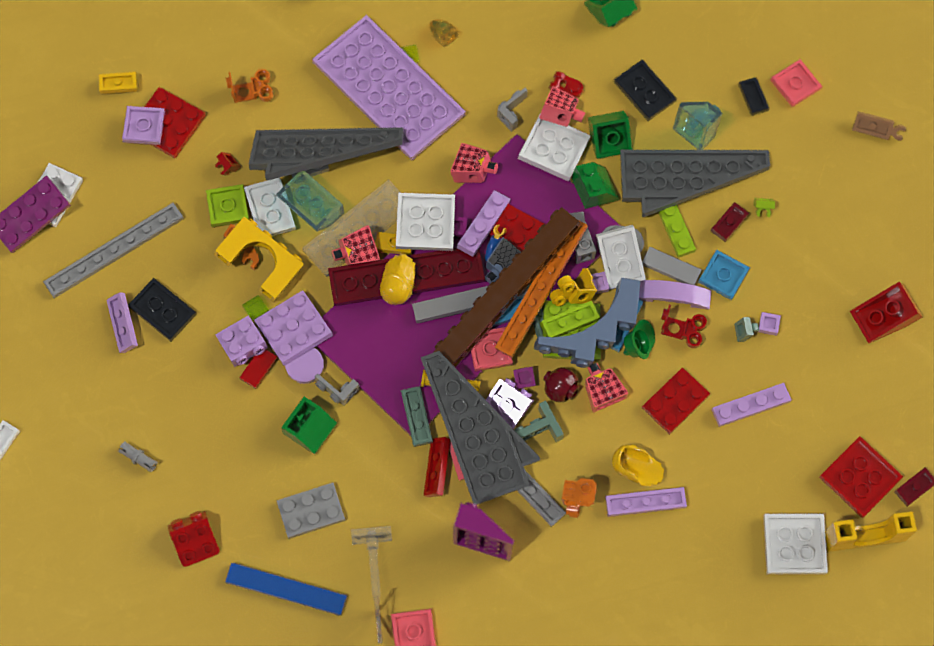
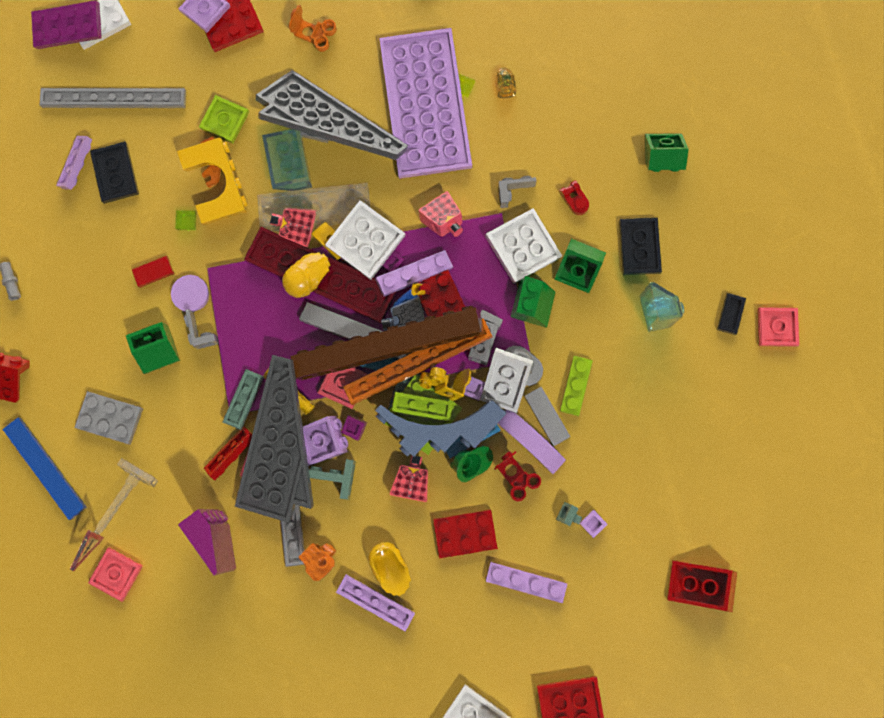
camera: 45 degrees right, 10 degrees up
(228, 162) = (249, 83): red tile -> none
(242, 341) = (153, 241): lavender plate -> none
(267, 209) = (249, 146): white plate -> none
(293, 327) = (201, 257): lavender plate -> none
(561, 108) = (553, 215): coral torso -> none
(561, 384) = (379, 454): dark red plant -> none
(675, 176) = (608, 340): dark grey wing -> none
(723, 274) = (587, 453): dark azure tile -> none
(729, 222) = (626, 411): dark red plate -> none
(763, 203) = (668, 416): lime tile -> none
(876, 126) = (821, 414): medium nougat plate -> none

